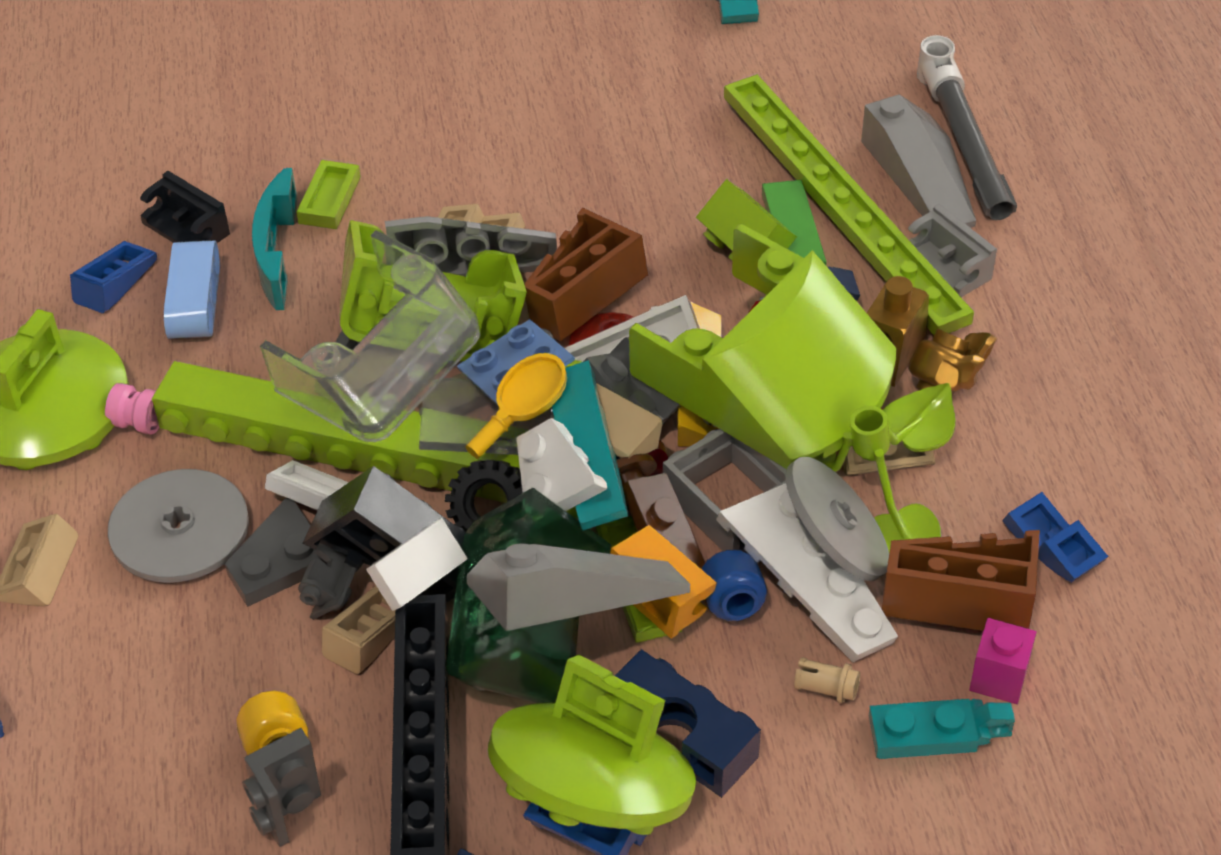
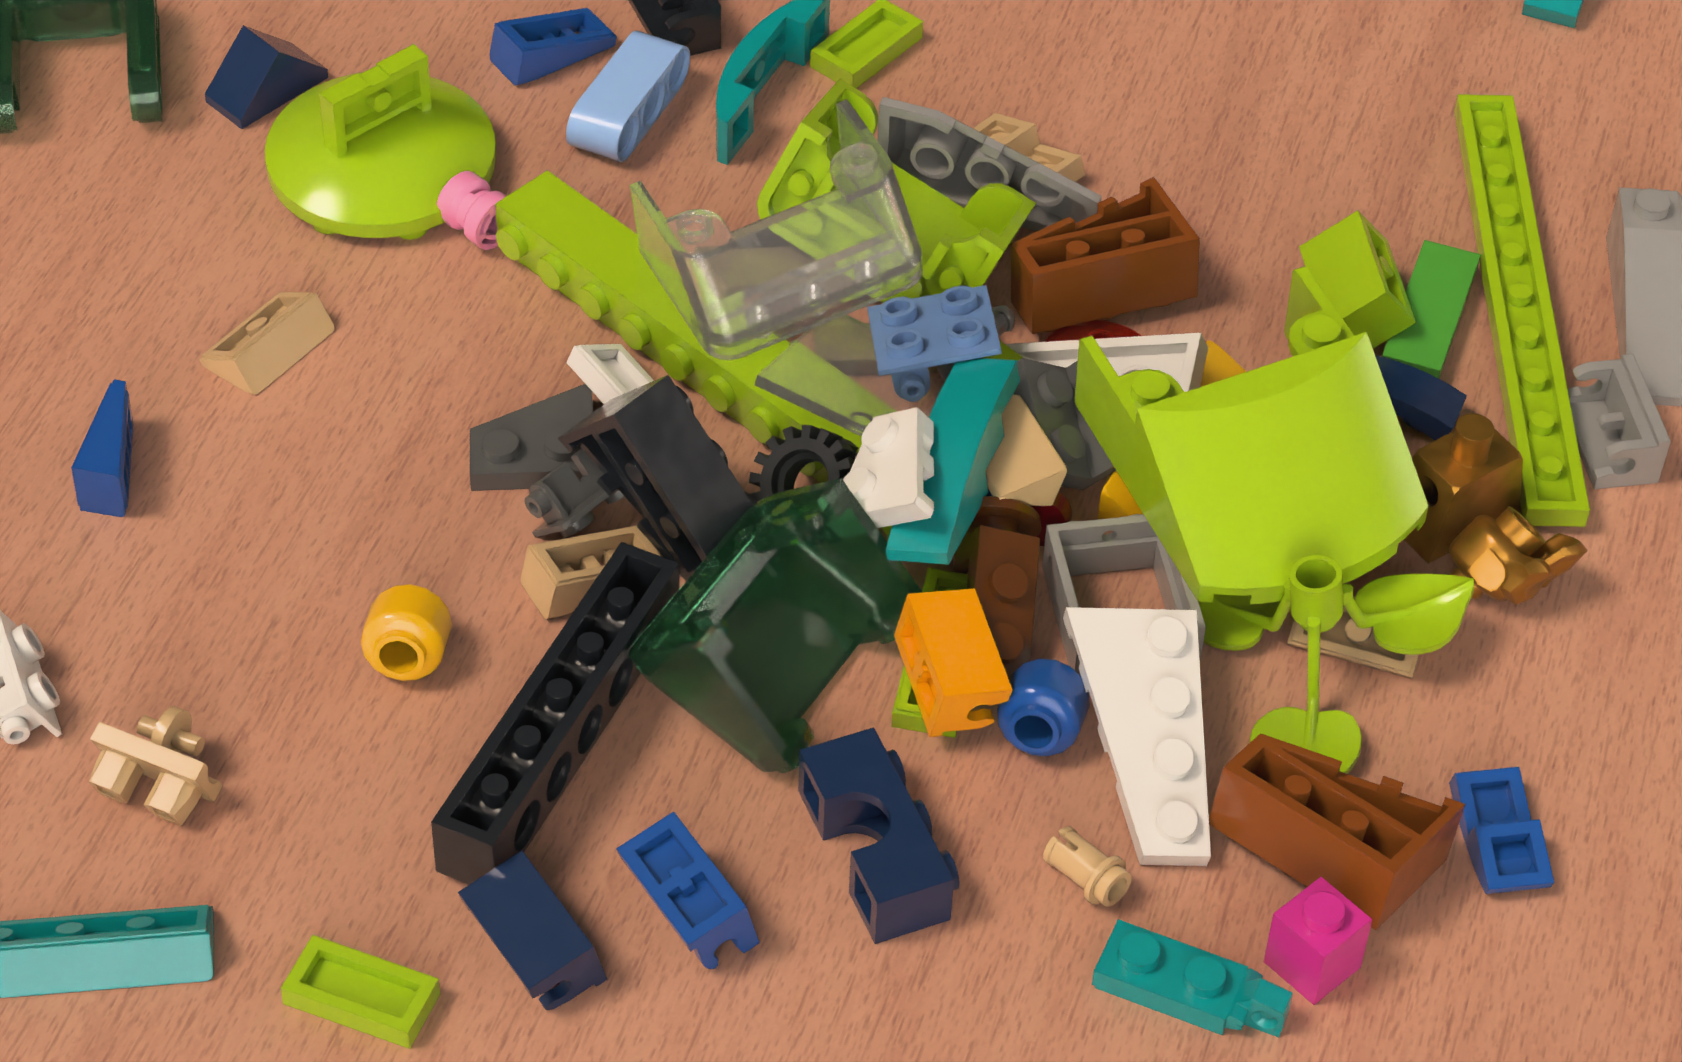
camera: 25 degrees right, 0 degrees up
(146, 518) = (447, 364): light grey piece -> none
(281, 783) = (370, 691): dark grey bracket -> none
(416, 564) = (662, 512): white tile -> none
(522, 395) = (906, 370): yellow piece -> none
(550, 583) = (795, 598): light grey wedge -> none
(593, 754) = (727, 815): lime bracket -> none
(837, 518) = (1208, 674): light grey piece -> none

